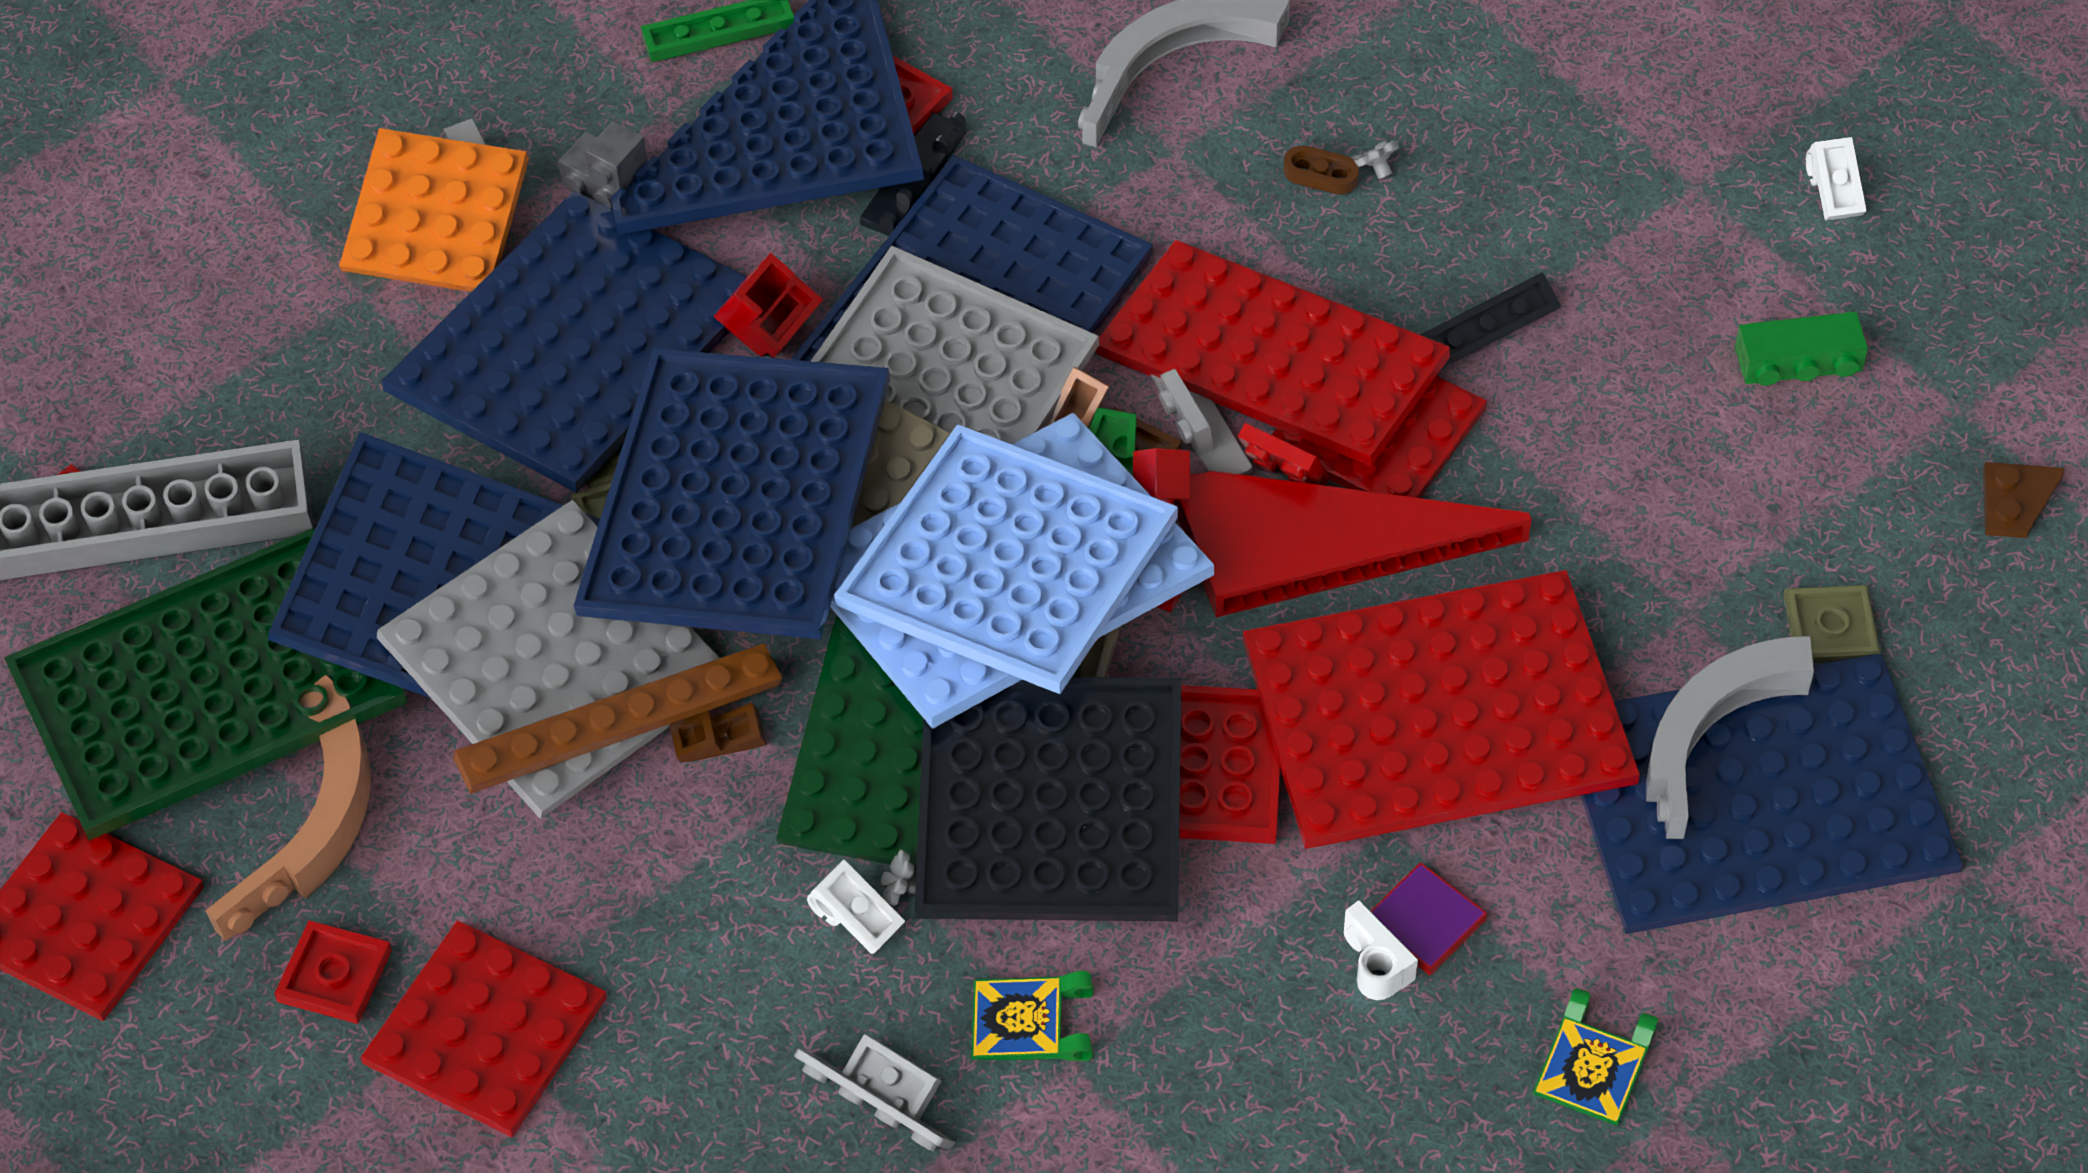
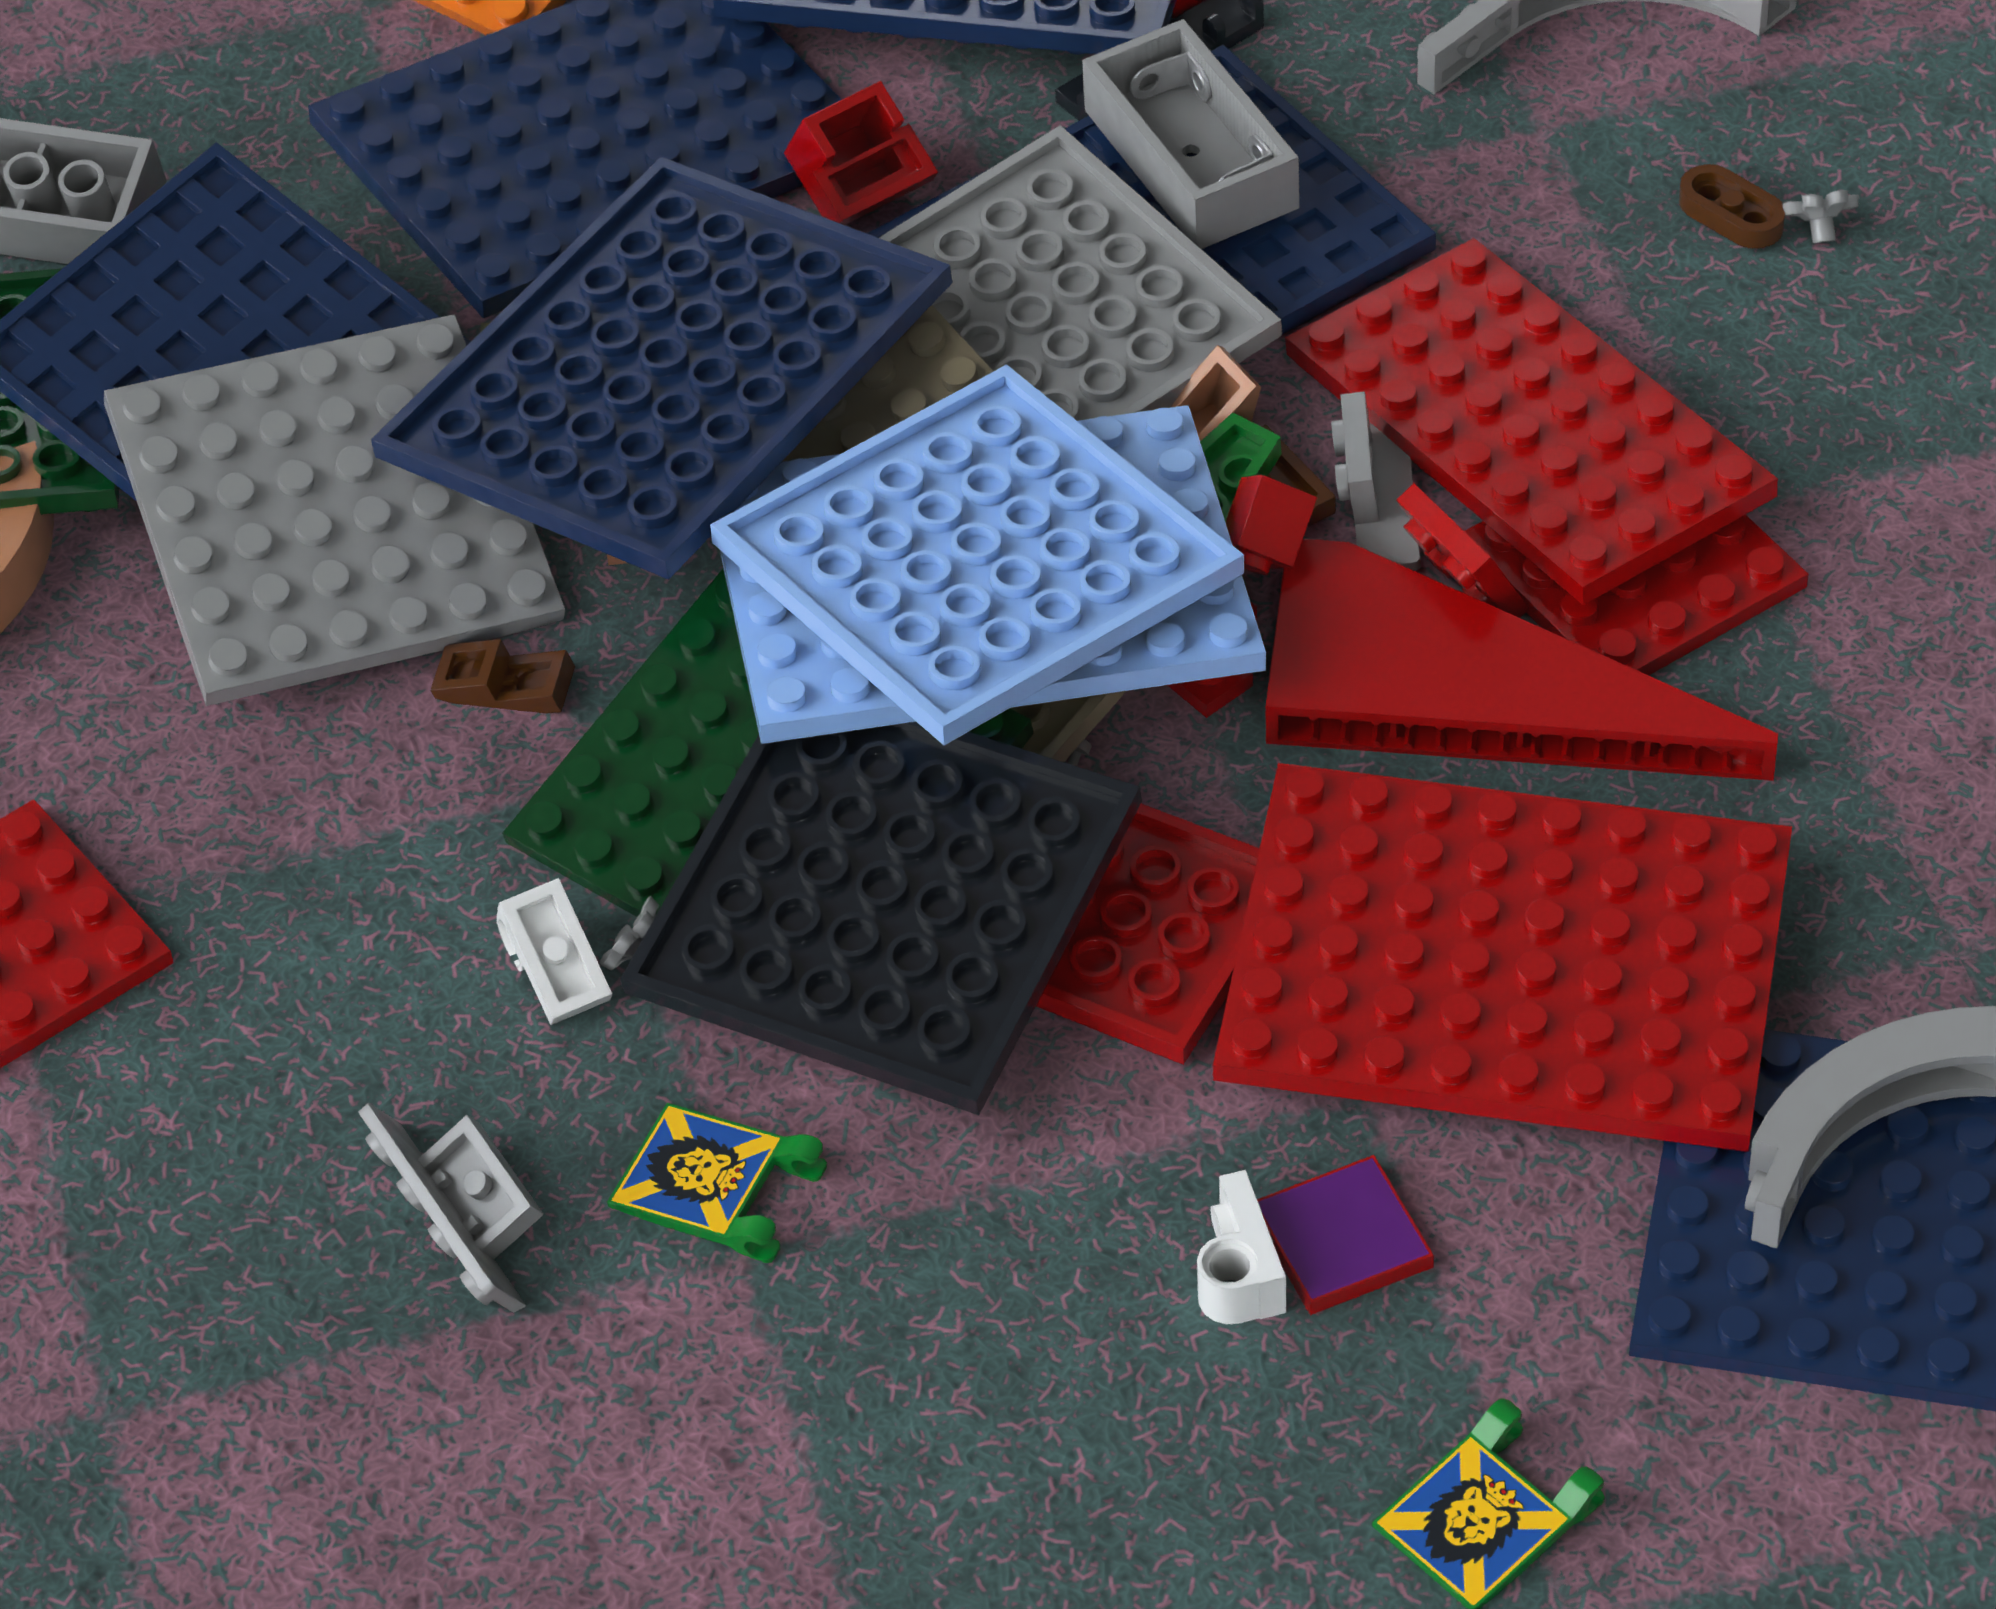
camera: 25 degrees right, 5 degrees down
(616, 718) = (366, 605): dark orange plate -> none
(953, 204) = (1174, 99): none -> light grey piece
(1495, 318) = (1874, 470): black hinge -> none

